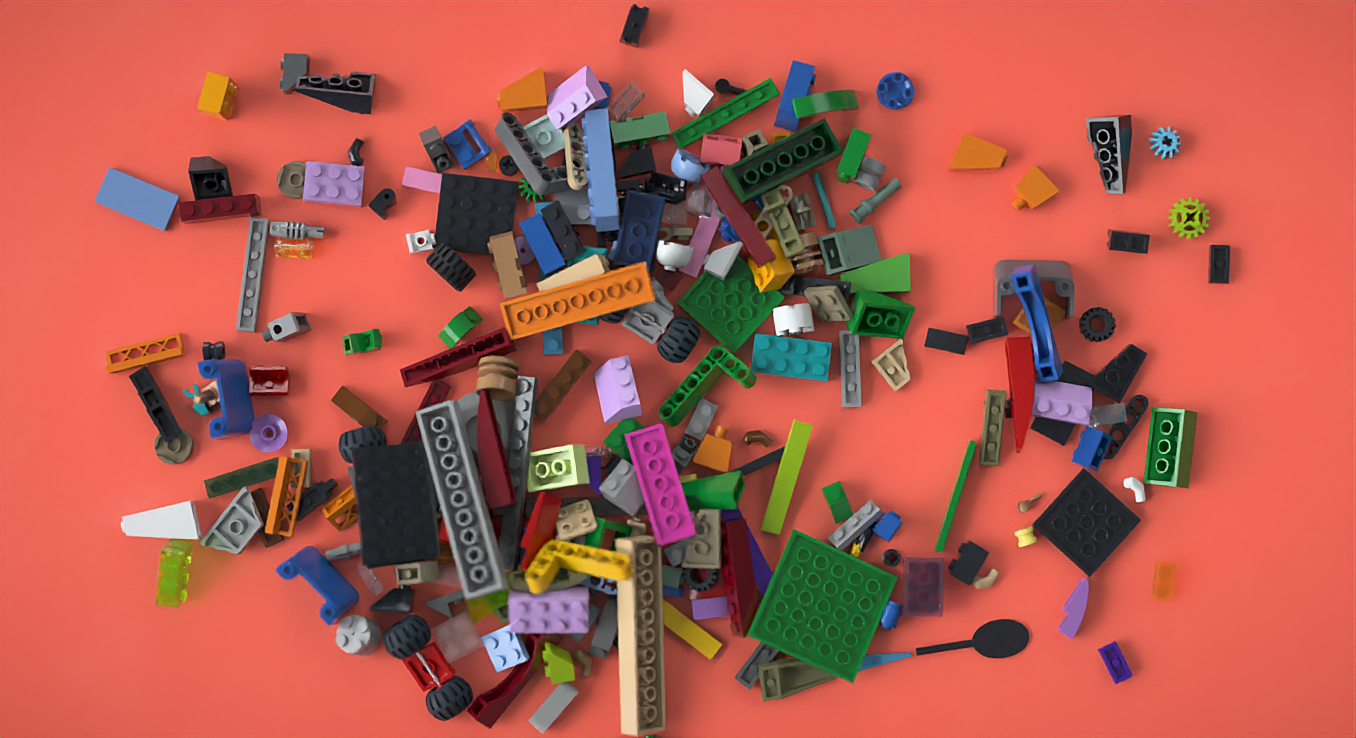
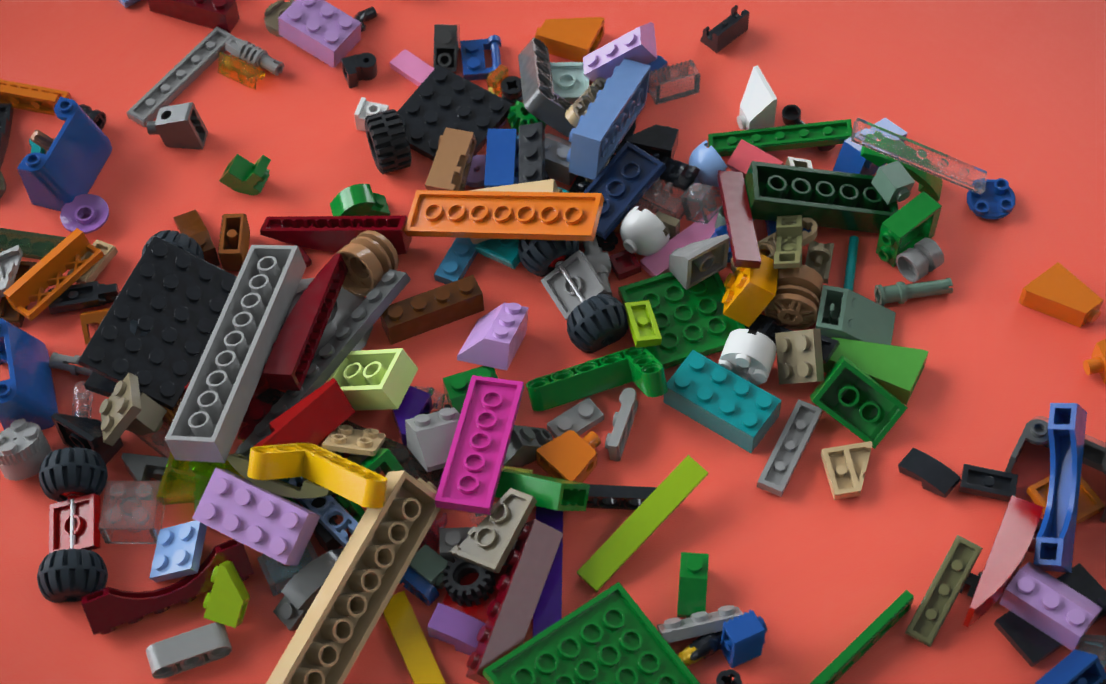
camera: 30 degrees right, 30 degrees down
(269, 380) = (124, 167): red bracket -> none
(392, 403) = (233, 241): none -> dark orange brick
(412, 581) = (120, 409): none -> dark tan plate
(586, 661) = (264, 619): medium nougat arm -> none
(640, 130) = (670, 109): green wedge -> none
(711, 329) = (642, 324): none -> lime plate
(734, 407) = (622, 424): none -> light grey hinge
(755, 436) = (634, 469): reddish brown arm -> none
(829, 129) = (893, 182): none -> sand green brick
(836, 95) = (919, 156): none -> clear tile

